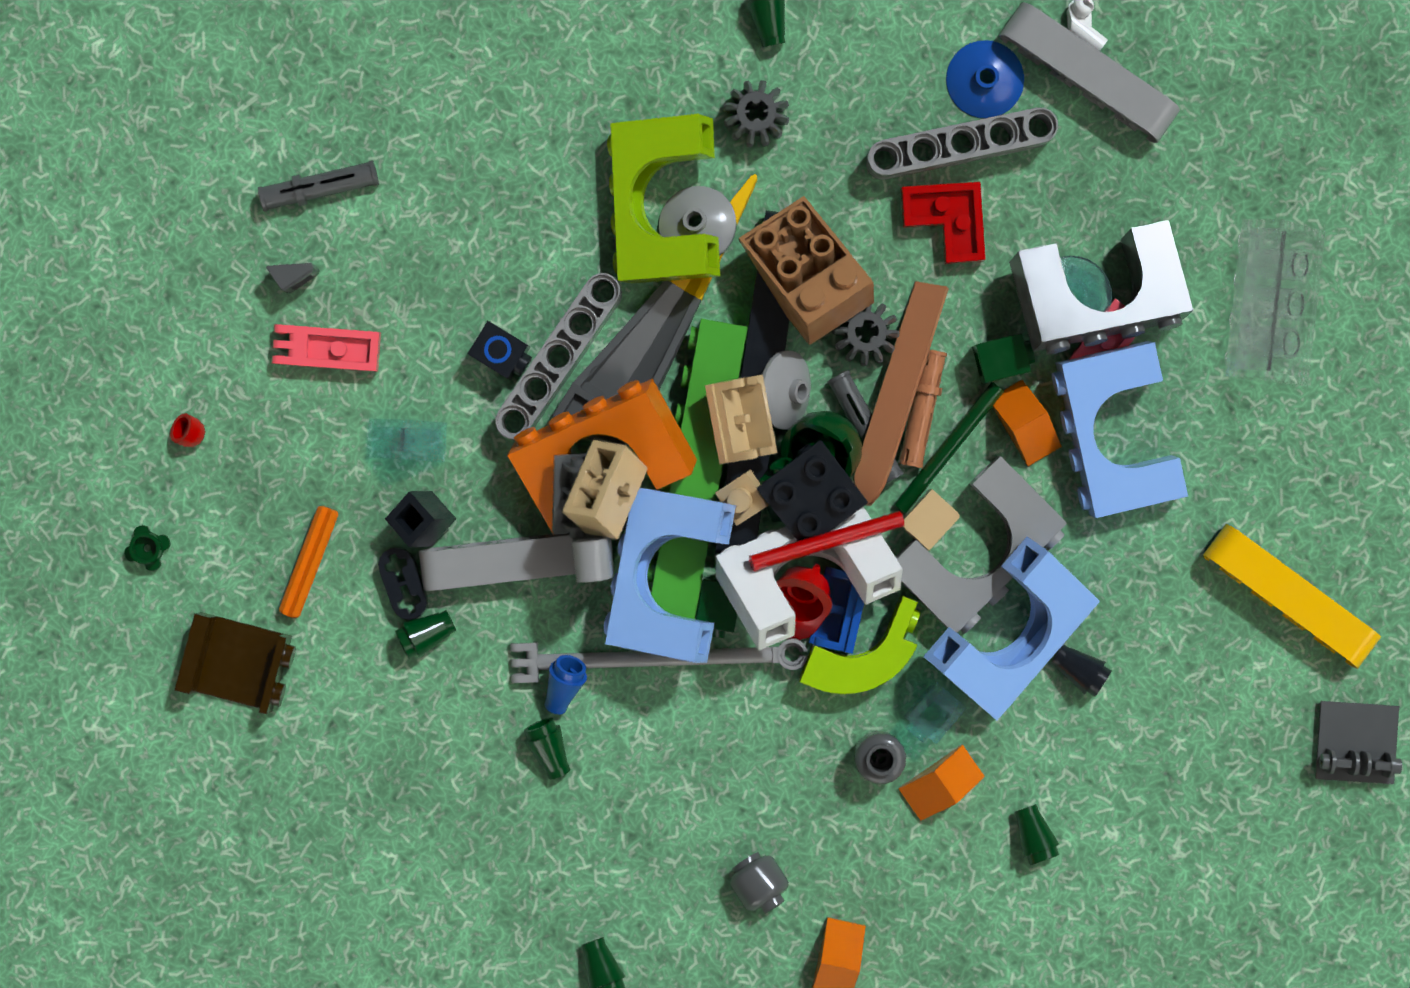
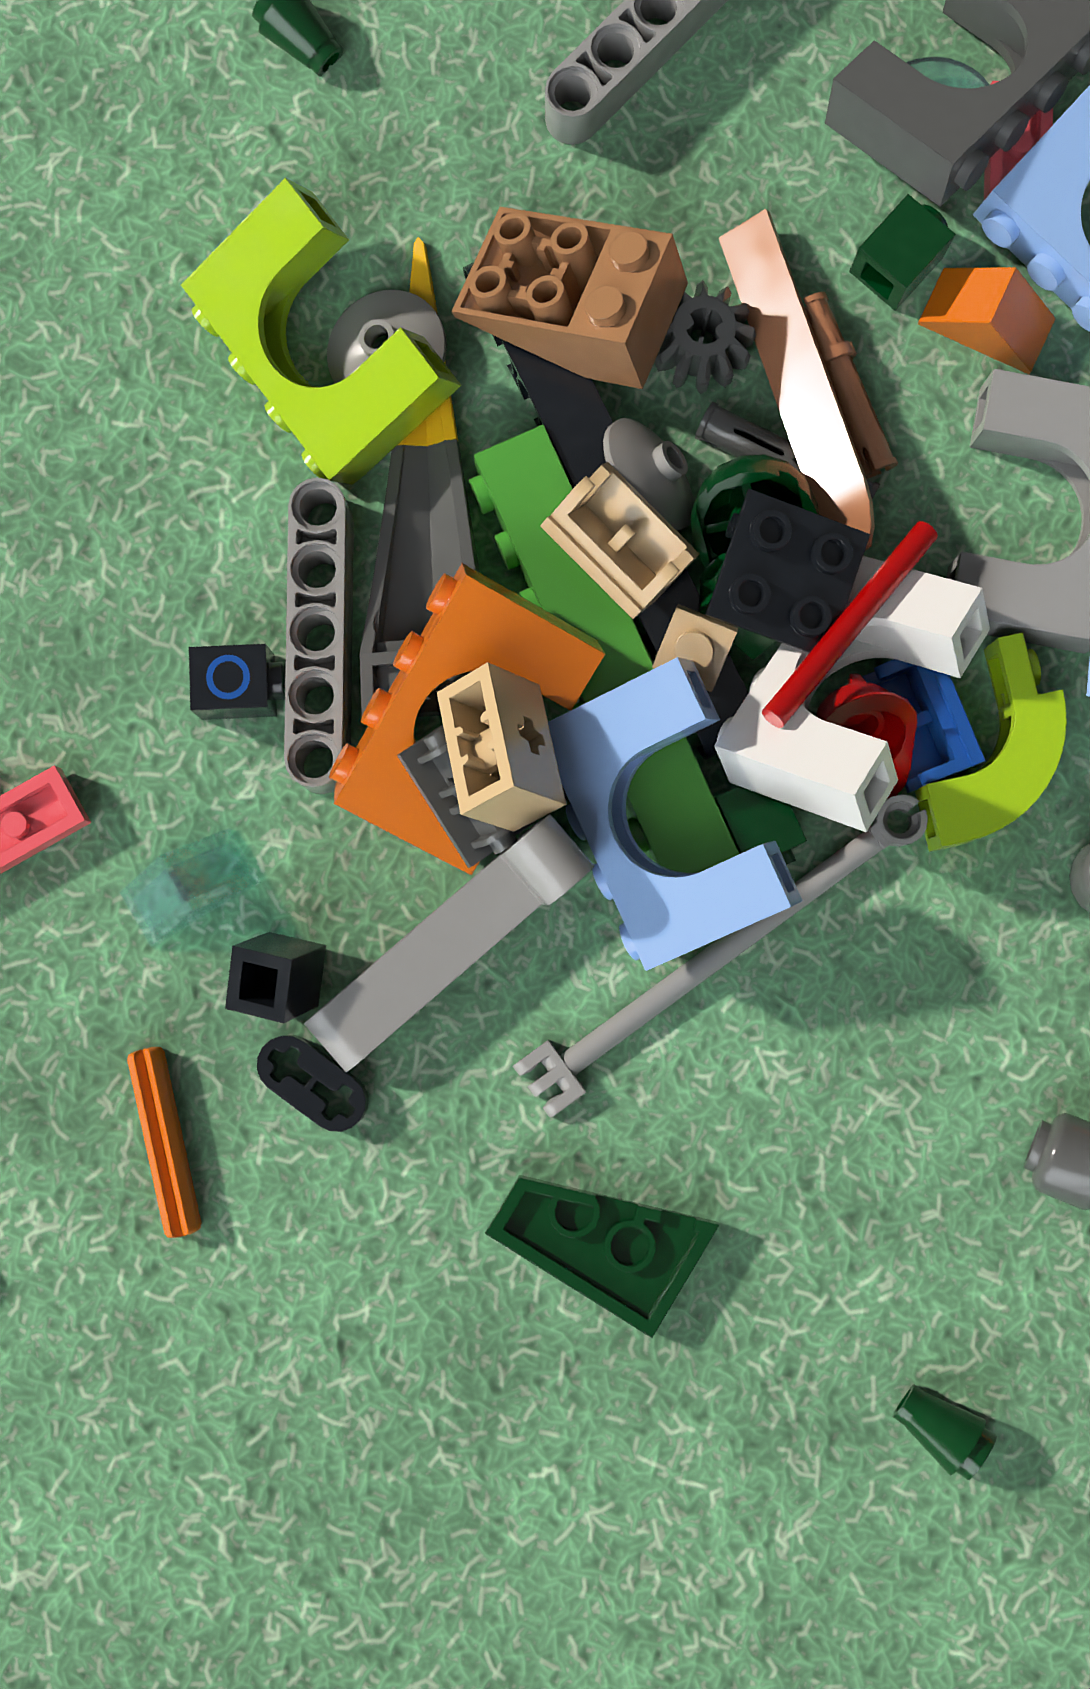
camera: 30 degrees left, 5 degrees down
(235, 662) = (150, 1350): dark brown panel -> none
(424, 633) = (387, 1130): dark green cone -> none
(494, 765) = (604, 1246): none -> dark green wing
(547, 745) = (659, 1171): dark green cone -> none
(564, 682) = (623, 1064): blue cone -> none
(755, 100) = (387, 163): dark grey gear -> none
(929, 519) = (961, 514): tan panel -> none
(949, 447) = (913, 410): dark green bar -> none
(956, 209) = (709, 109): red plate -> none

